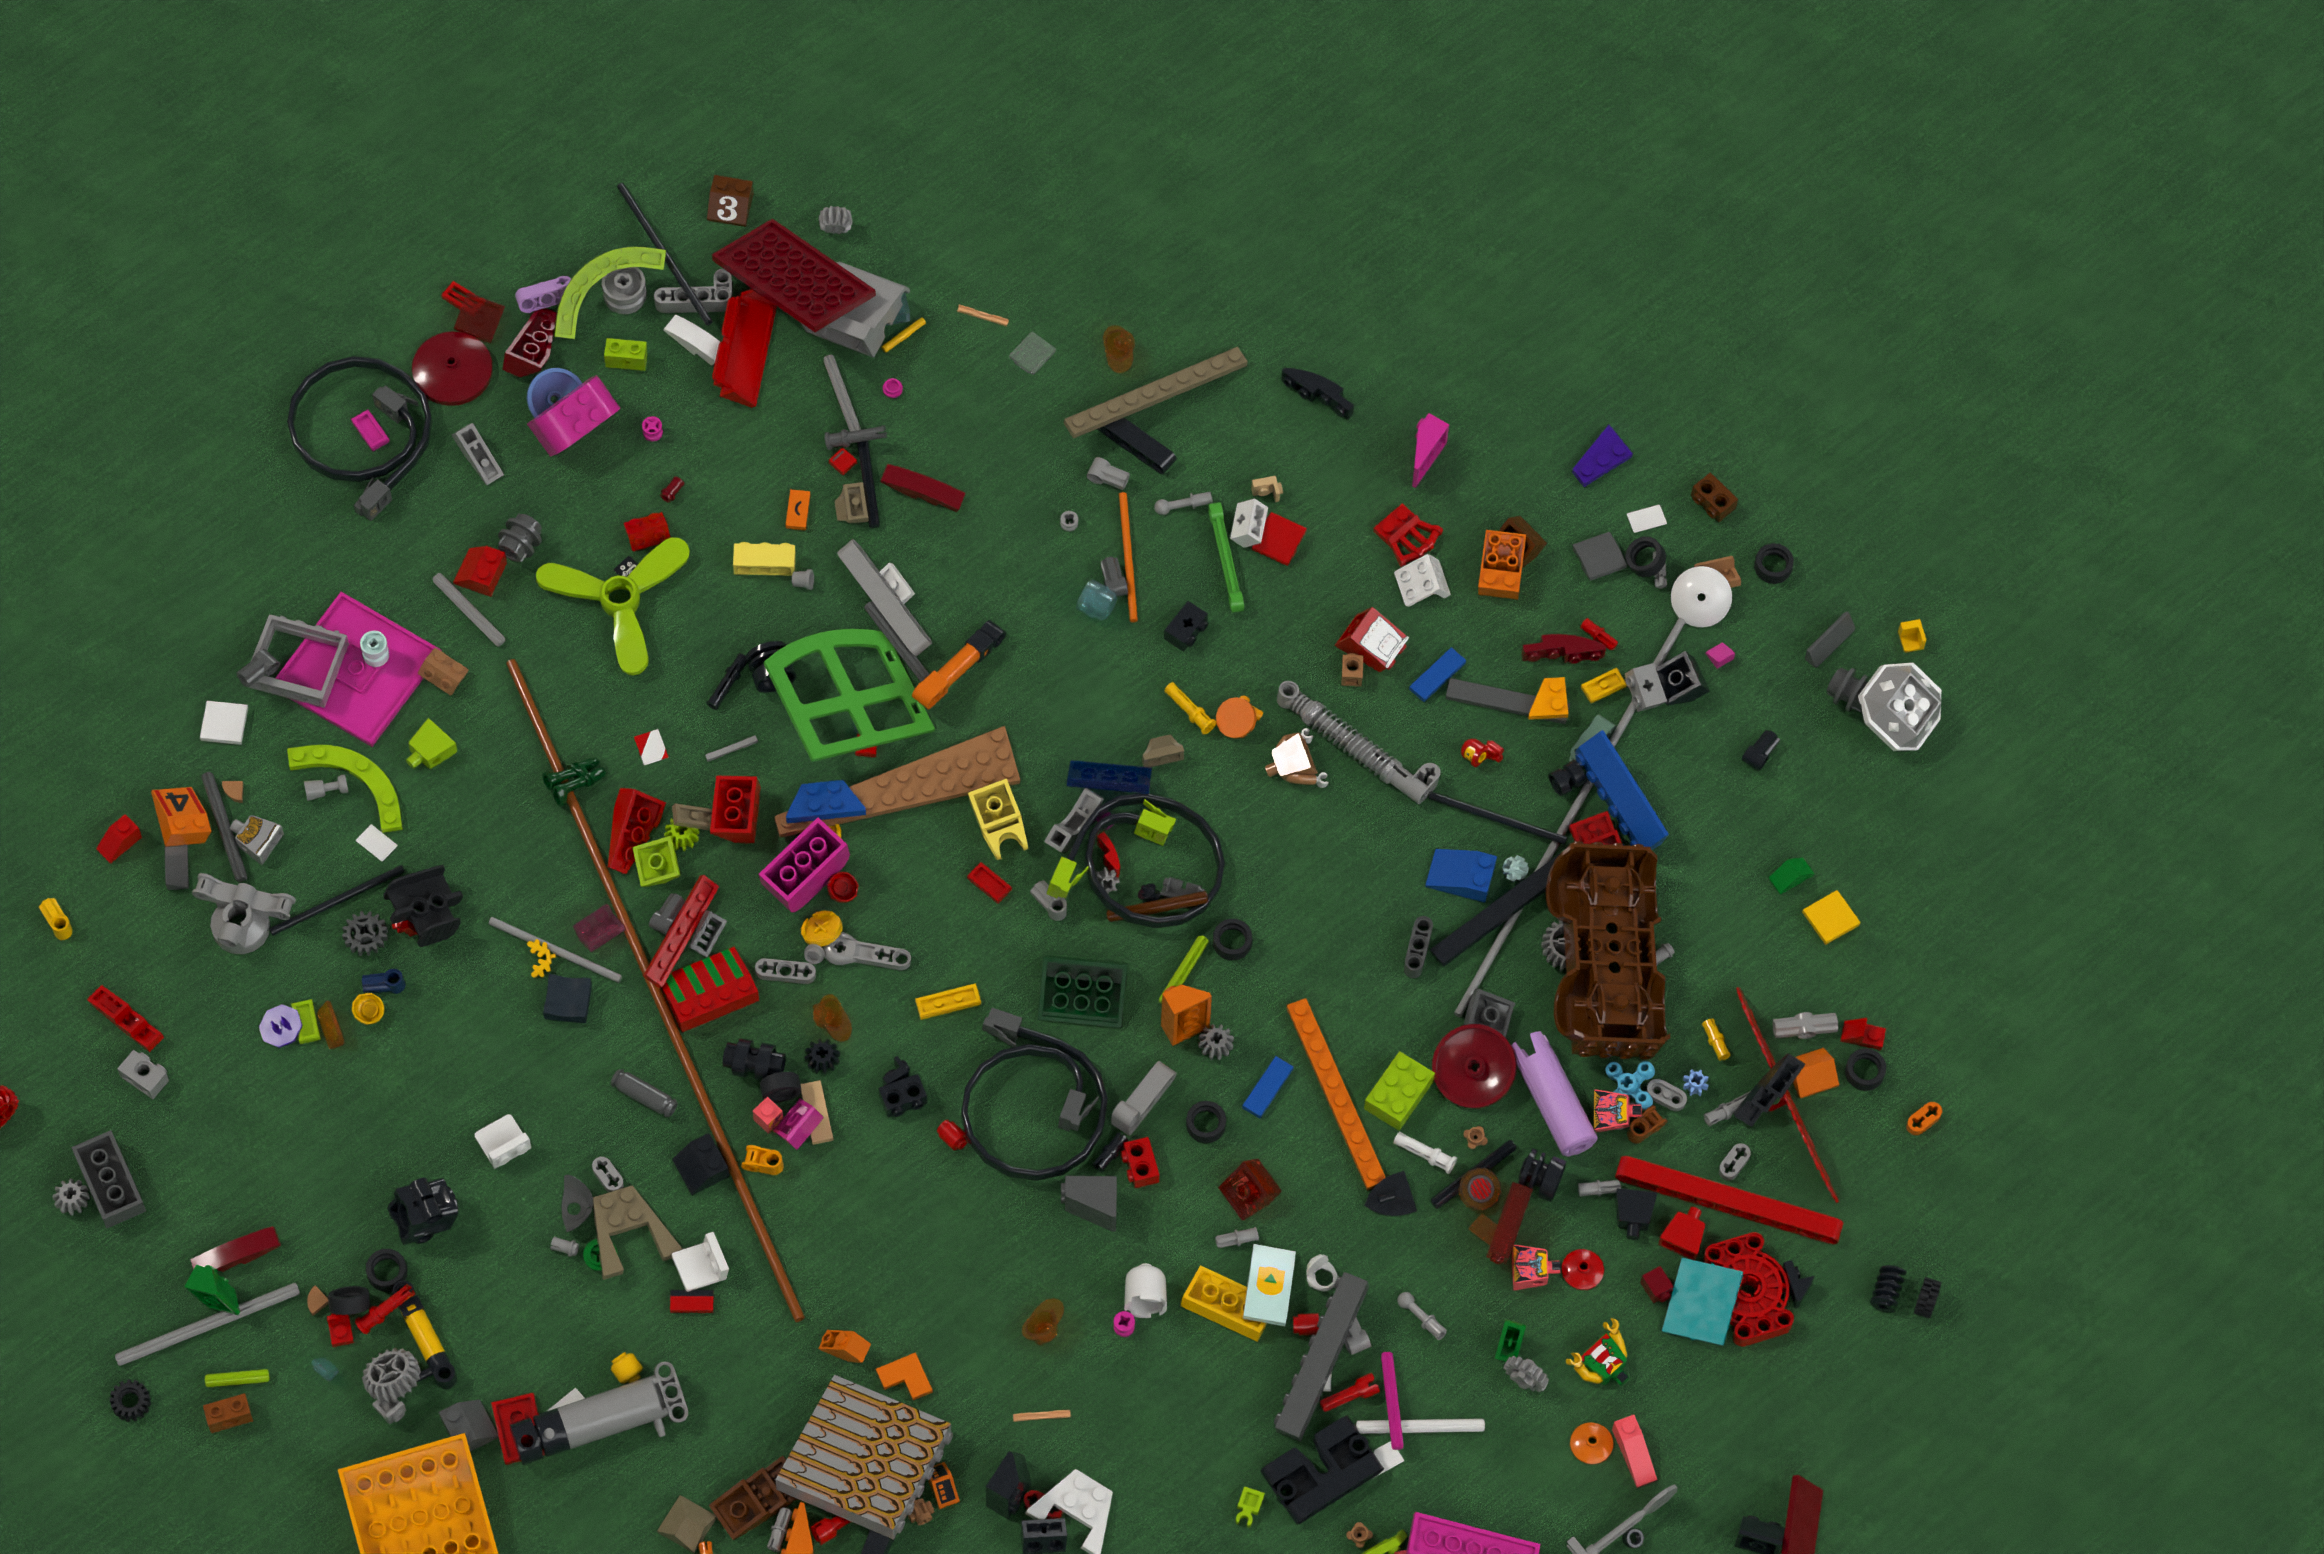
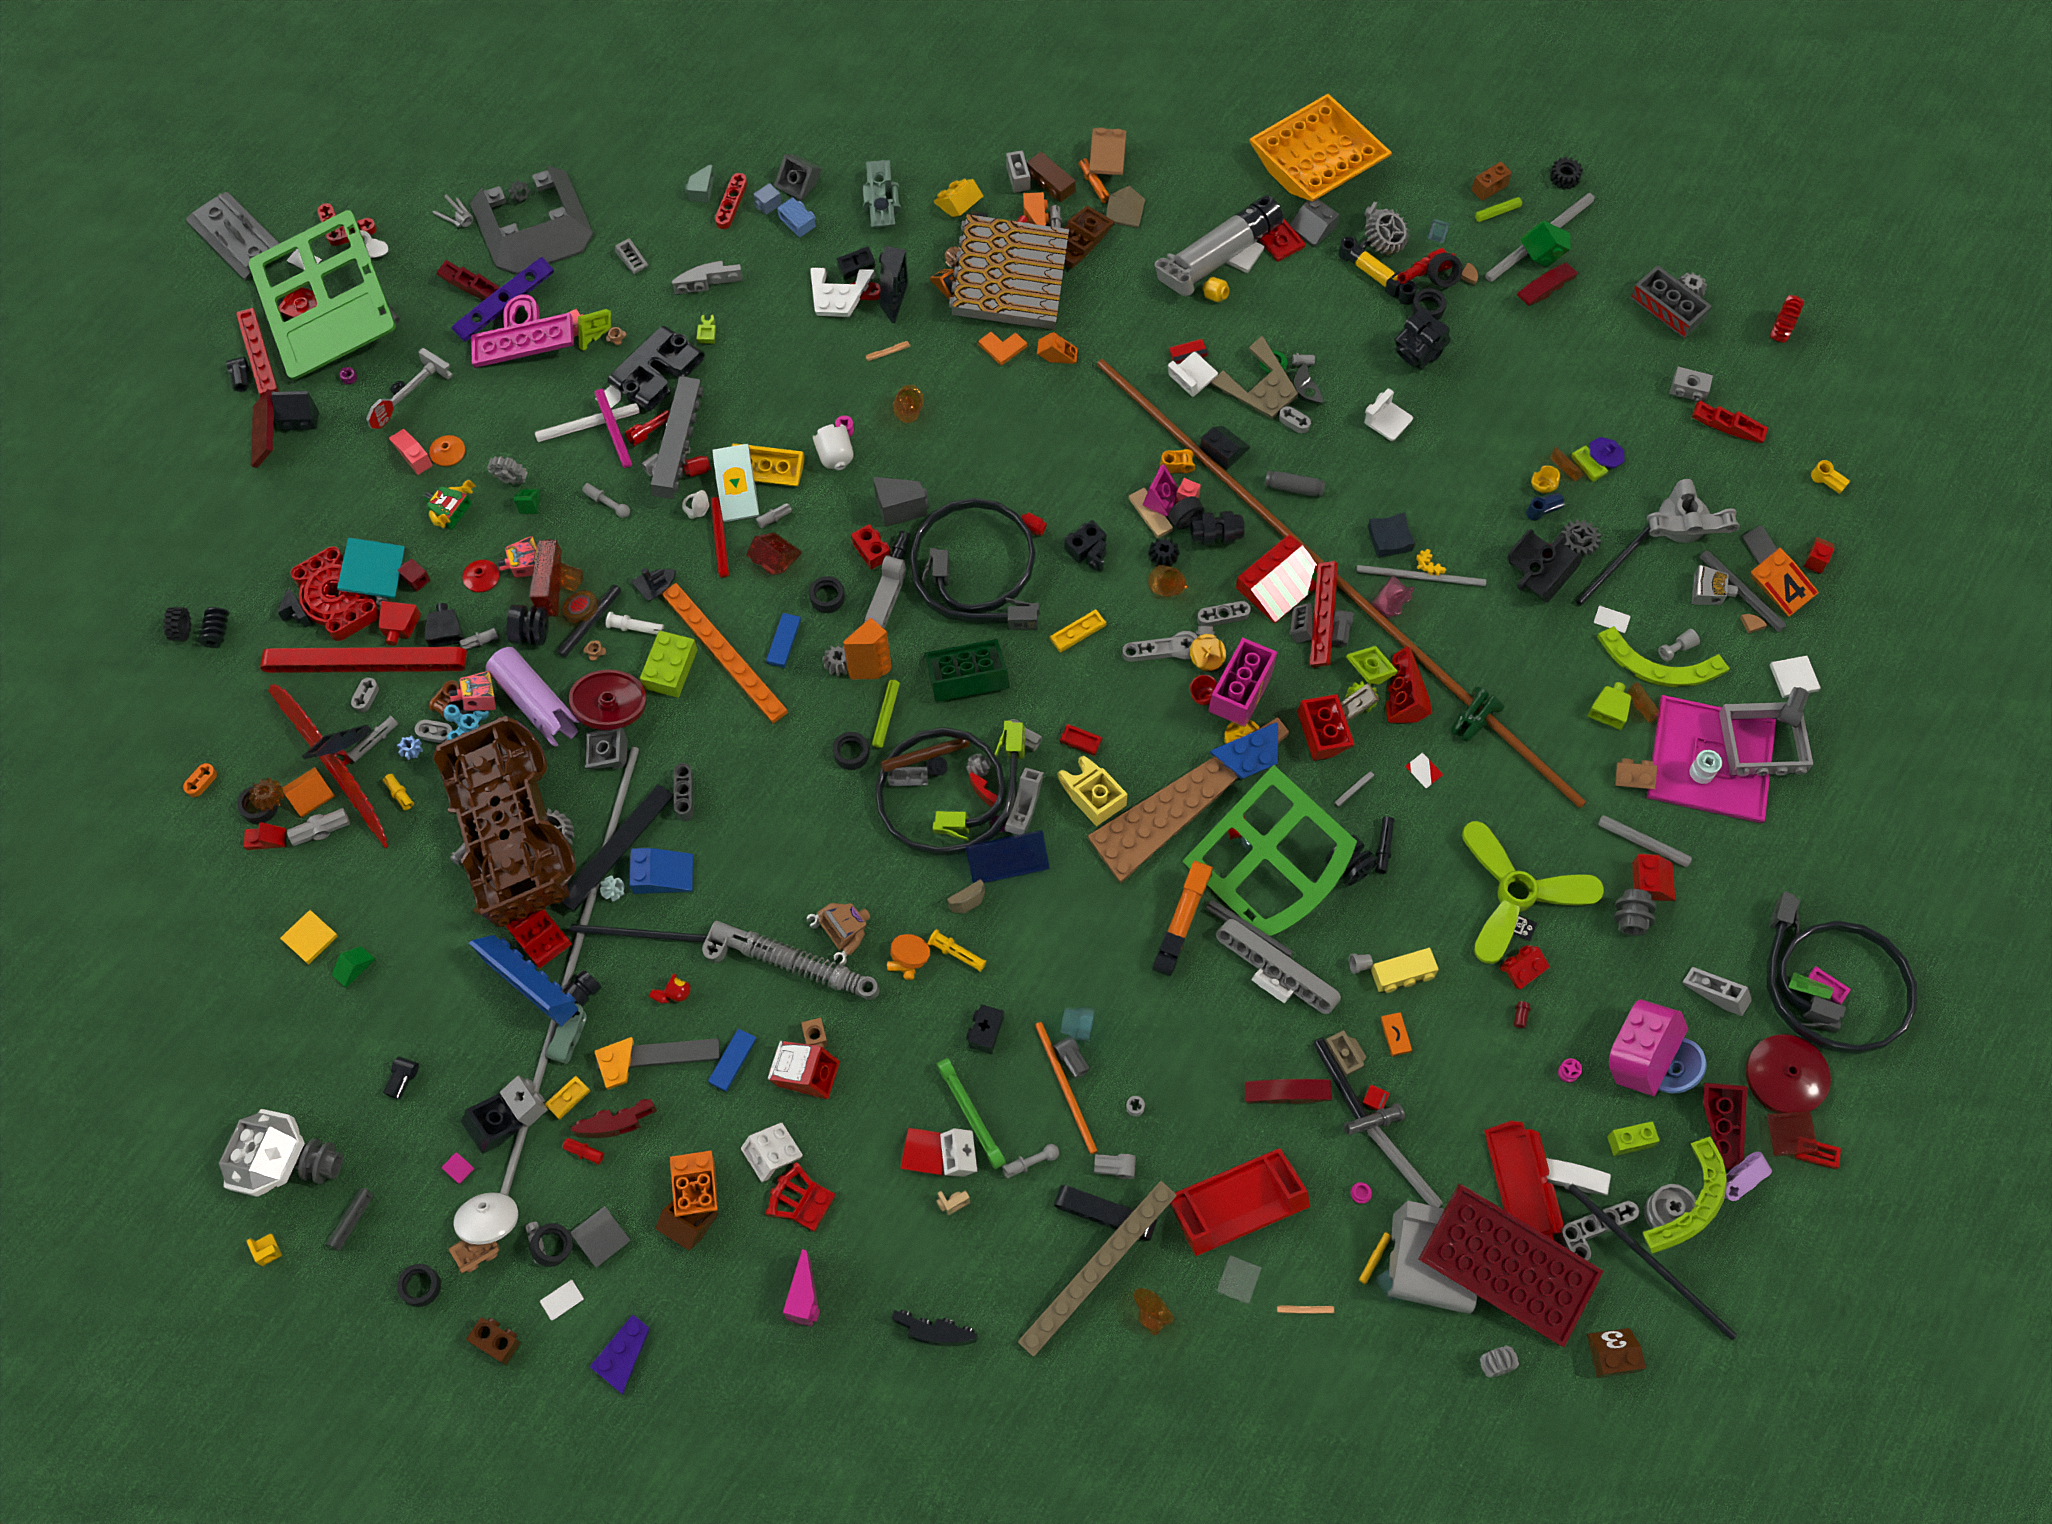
camera: 165 degrees right, 0 degrees up
(393, 425) = (1810, 986): none -> bright green wing
(397, 739) = (1643, 702): none -> clear orange plate
(1007, 413) = (1239, 1201): none -> red slope
(1305, 1231) = (719, 538): none -> red axle
(1852, 1068) = (269, 787): none -> clear orange gear

